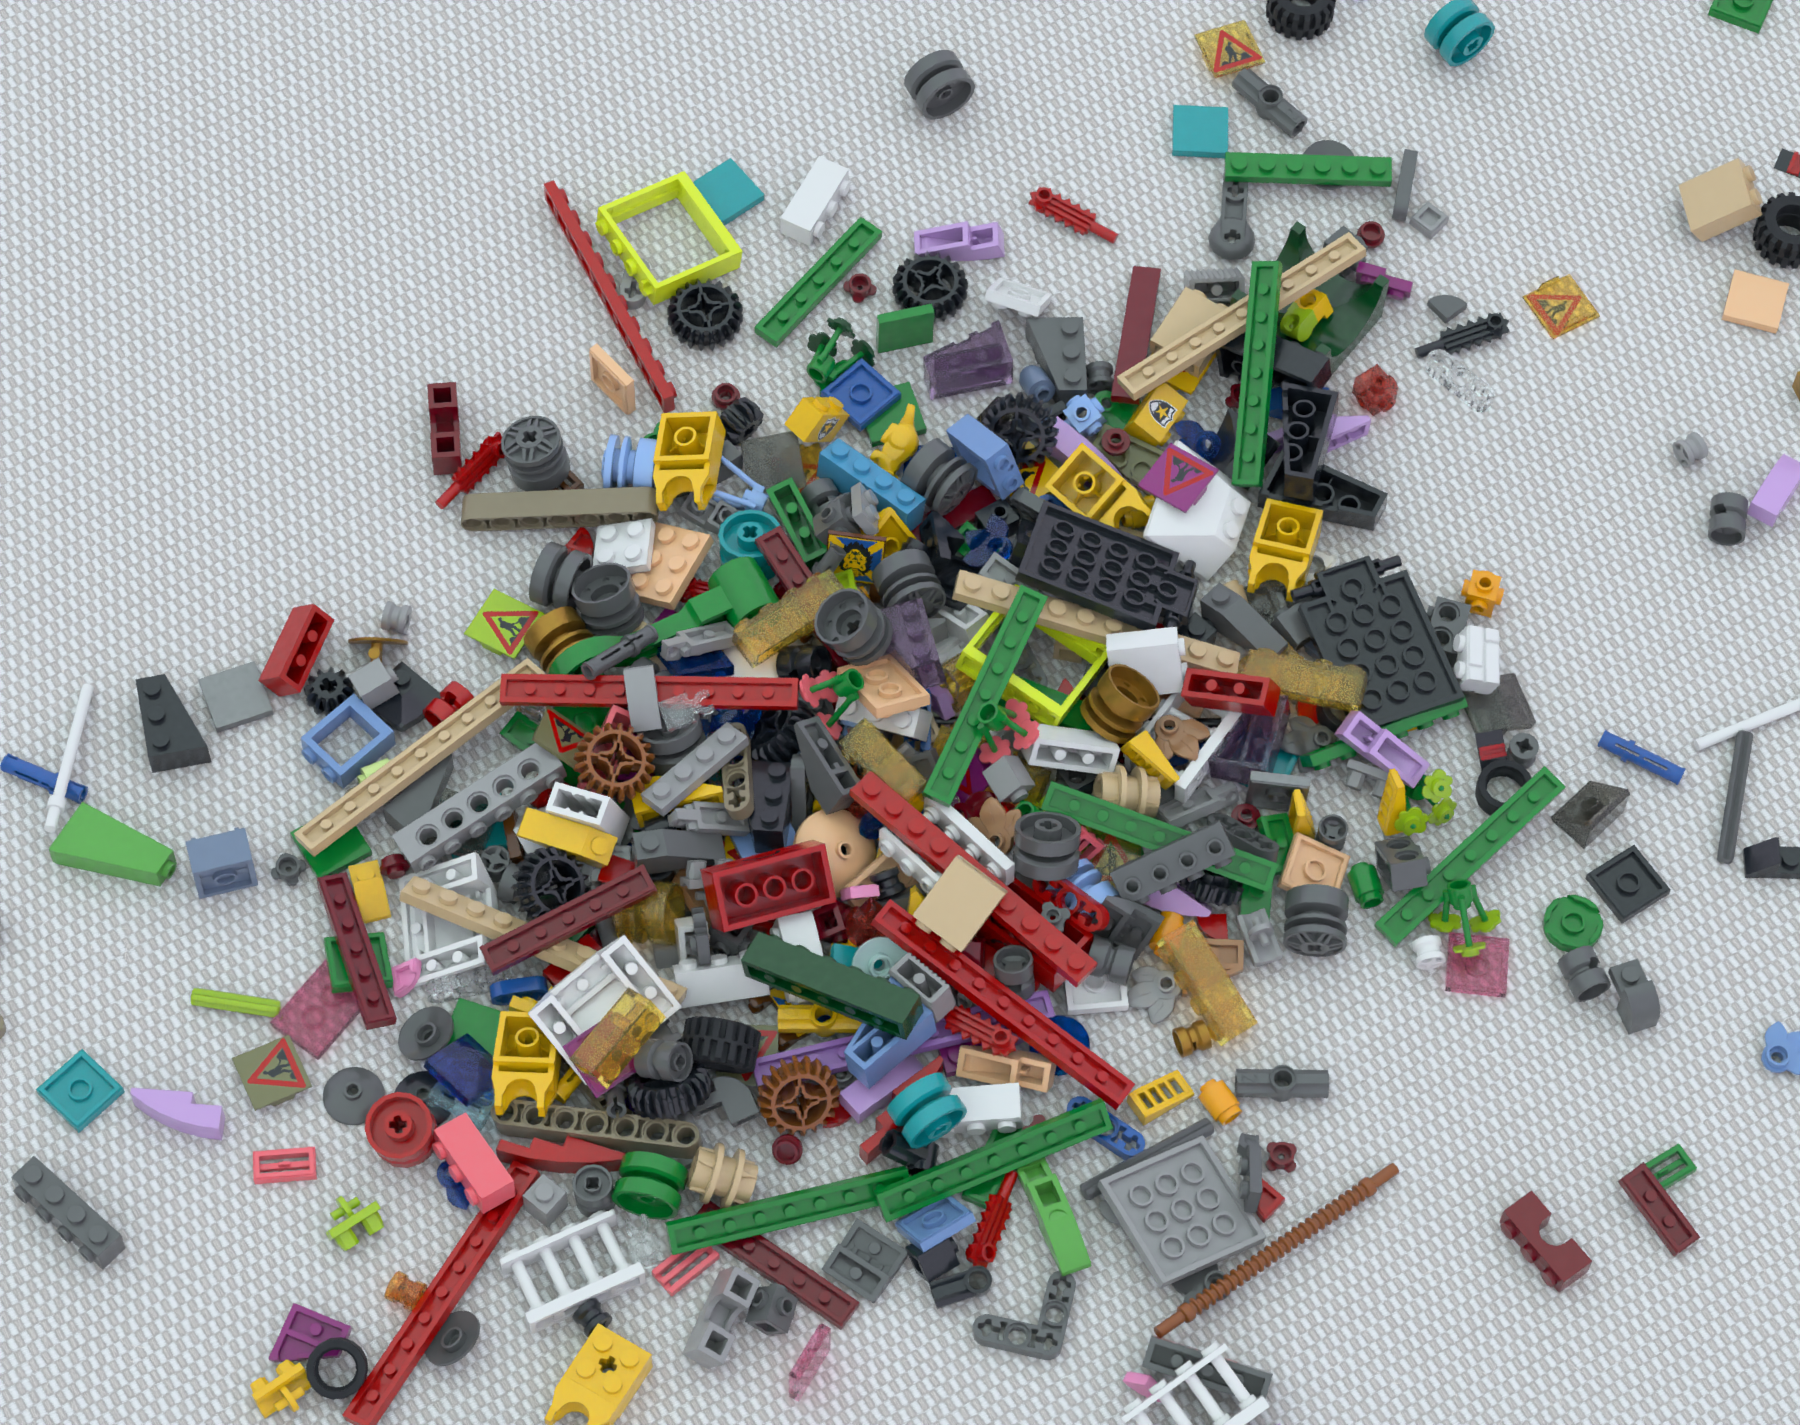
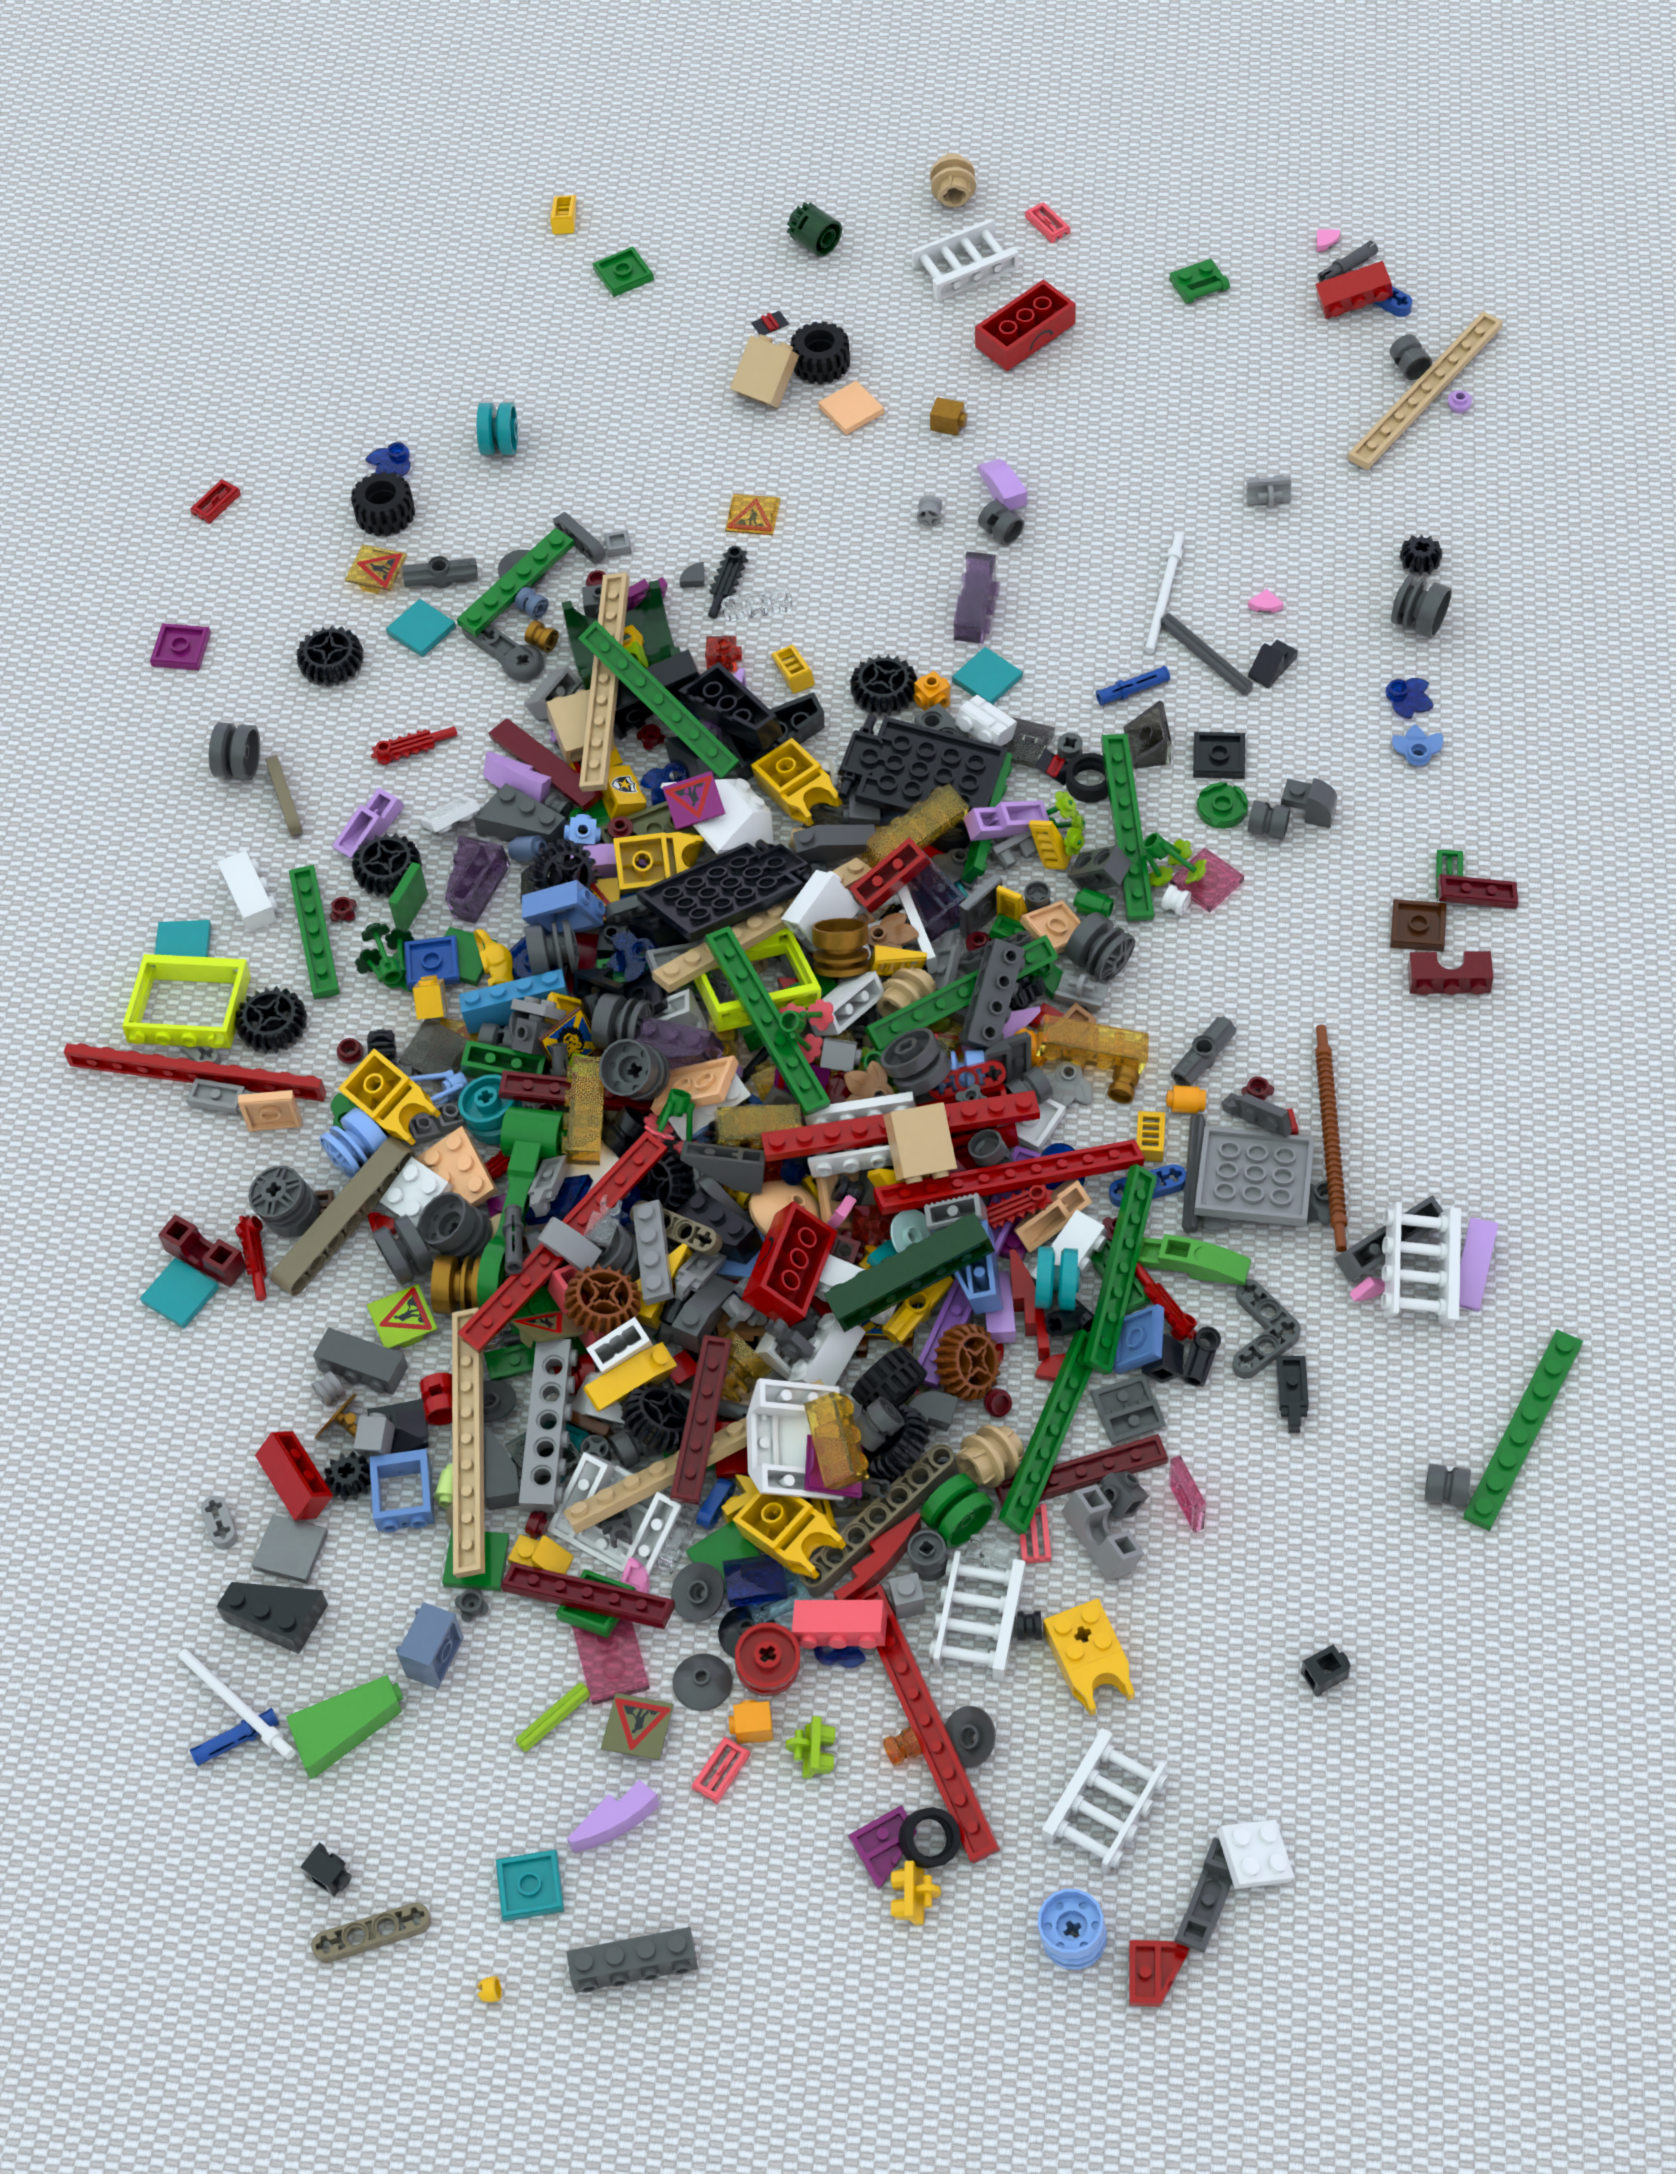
camera: 45 degrees left, 5 degrees down
(214, 624) = (224, 1520): none -> light grey beam
(341, 1158) = (751, 1722): none -> light orange brick
(399, 441) = (179, 1293): none -> teal tile
(432, 928) = (618, 1527): none -> dark grey plate
(438, 623) = (360, 1361): none -> dark grey brick
(482, 751) = (498, 1400): none -> dark grey dish
(602, 330) = (216, 1096): none -> light grey hinge
(856, 1168) = (1050, 1367): none -> red tile
(933, 156) = (284, 795): none -> dark tan beam
(989, 1386) = (1292, 1389): none -> black hinge
(1101, 324) = (518, 775): none -> lavender slope
(1104, 92) = (330, 656): none -> black gear
(1270, 231) = (540, 635): none -> pearl gold wheel
(1299, 201) = (533, 604): none -> sand blue wheel
(1407, 474) = (794, 670): none -> yellow slope
(1447, 535) = (883, 685): none -> black gear
(1546, 627) = (987, 676): none -> teal tile
(1580, 1181) = (1418, 925): none -> reddish brown tile
(1620, 559) = (976, 598): none -> clear purple wedge

